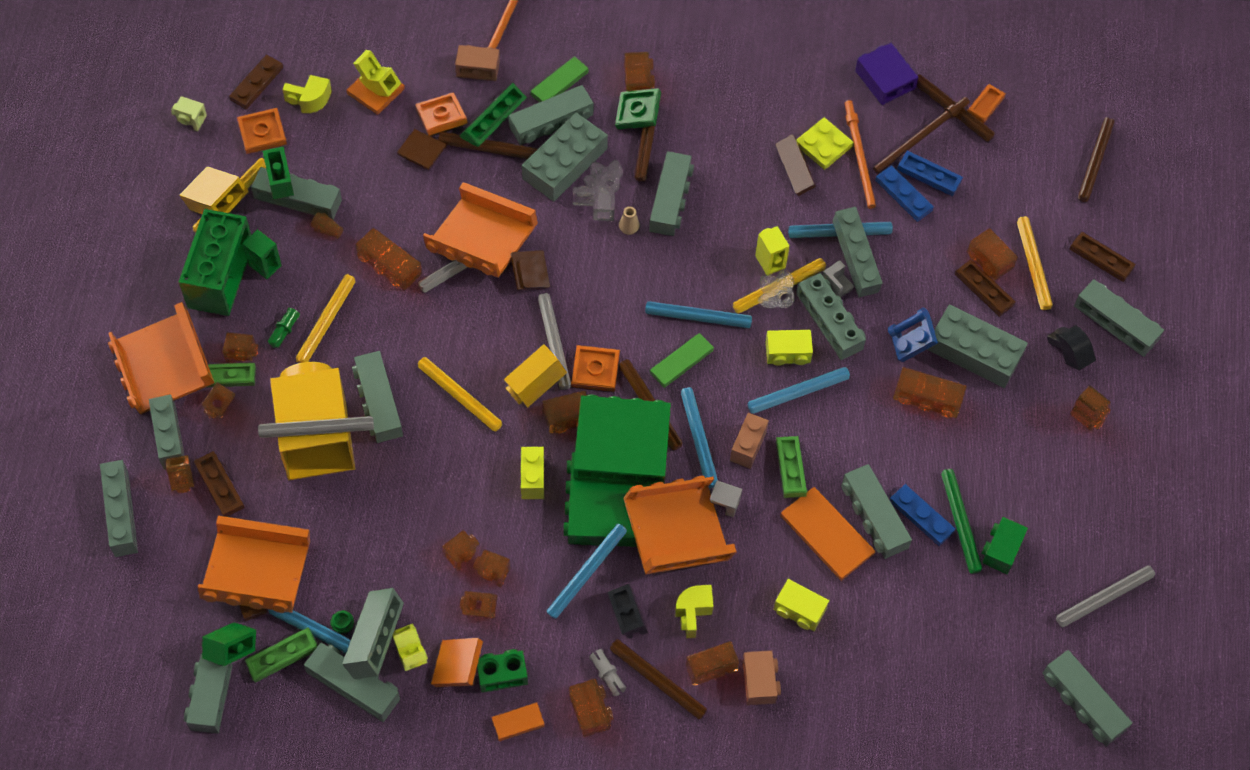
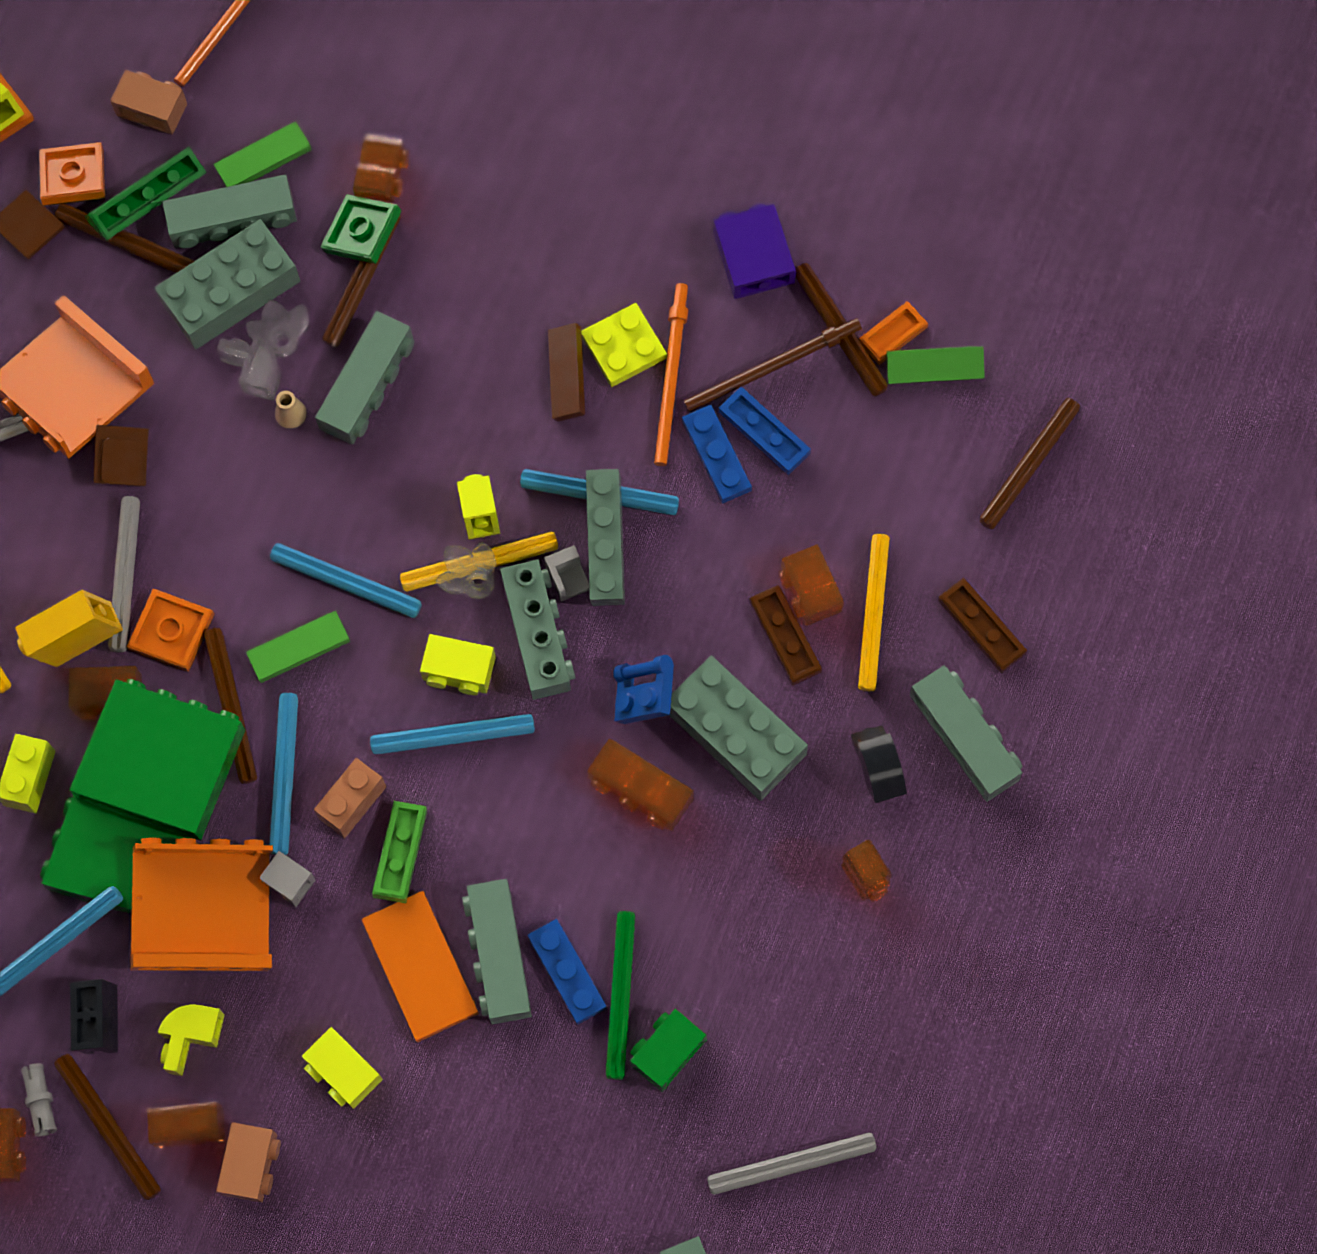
camera: 20 degrees right, 10 degrees up
(1019, 115) = (935, 364): none -> bright green tile

